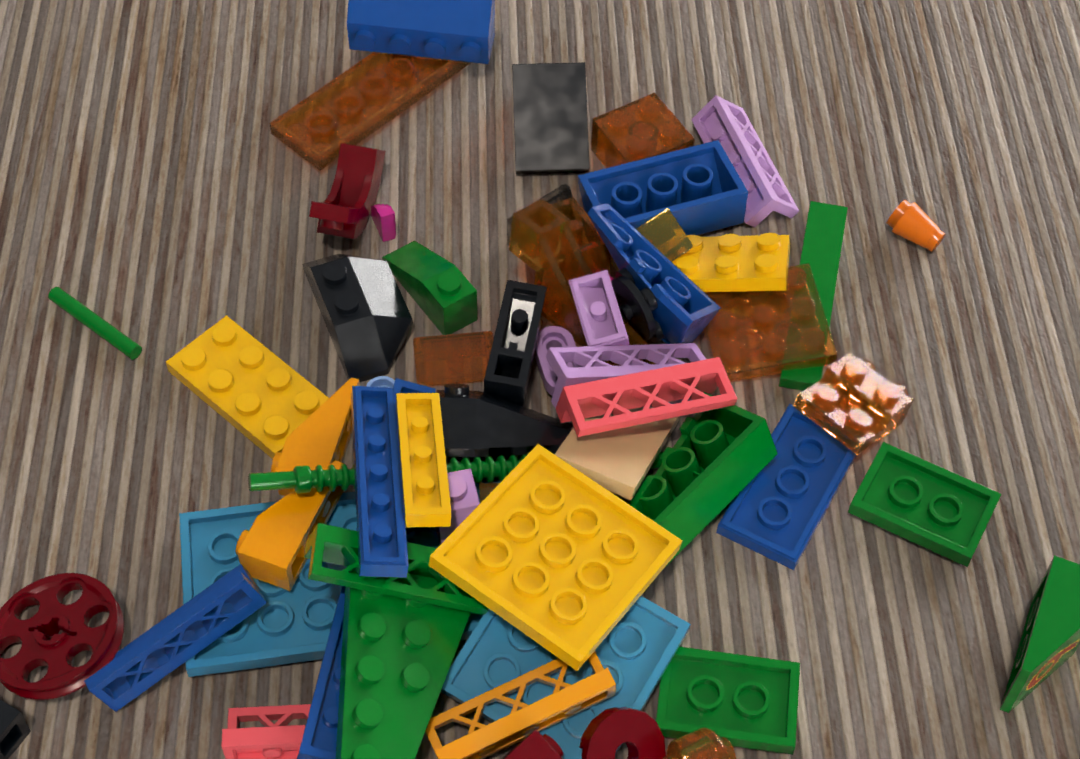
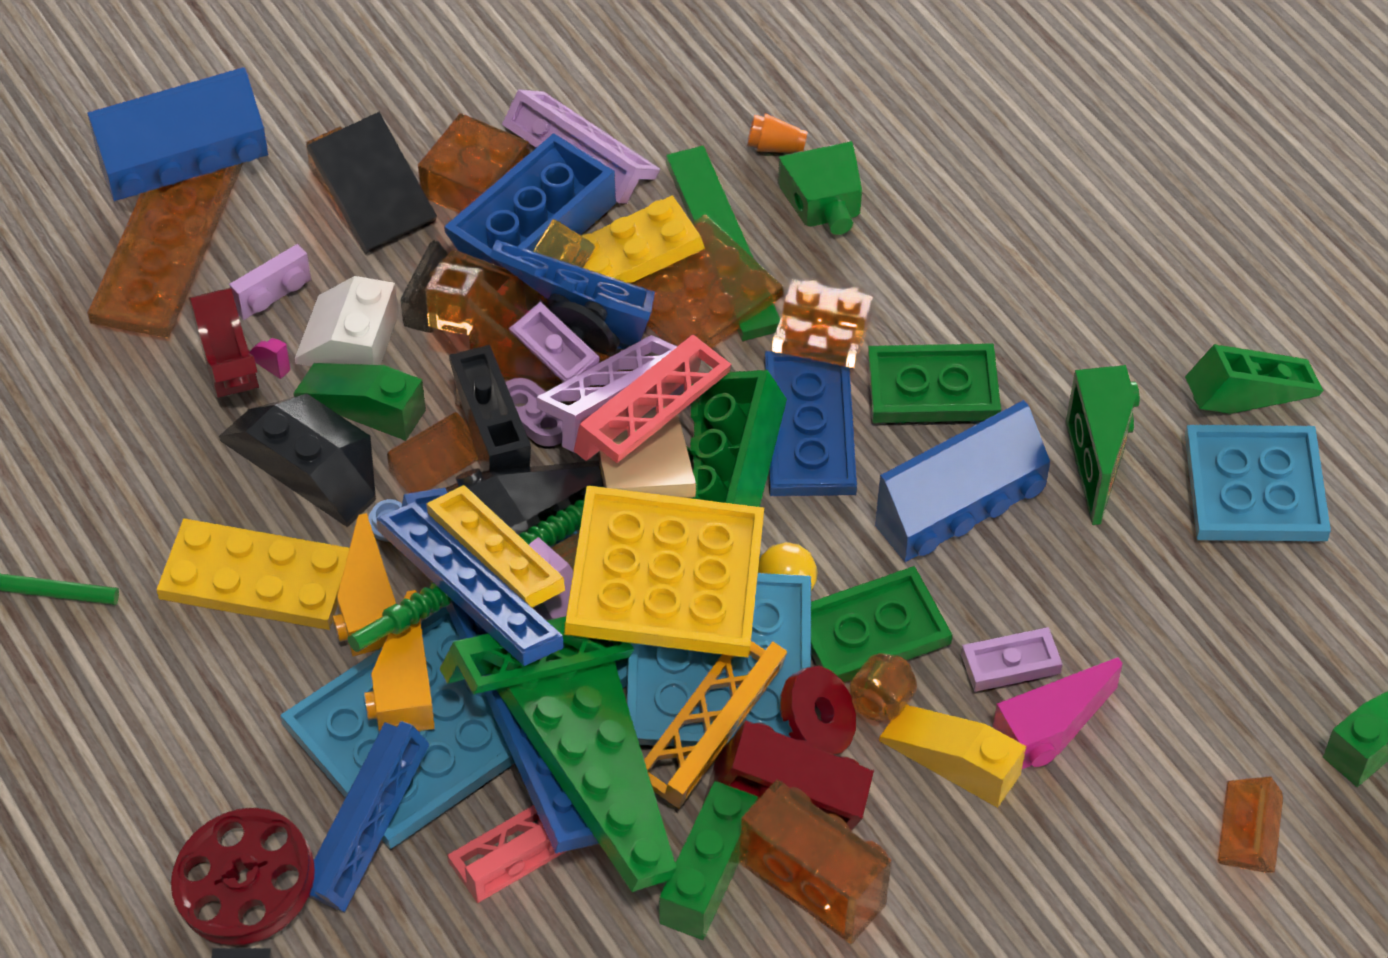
camera: 30 degrees left, 0 degrees up
(422, 161) = (271, 281): none -> lavender plate
(462, 225) = (350, 324): none -> white slope
(687, 602) = (788, 560): none -> yellow piece
(891, 607) = (962, 482): none -> slope
(930, 285) = (823, 185): none -> green torso

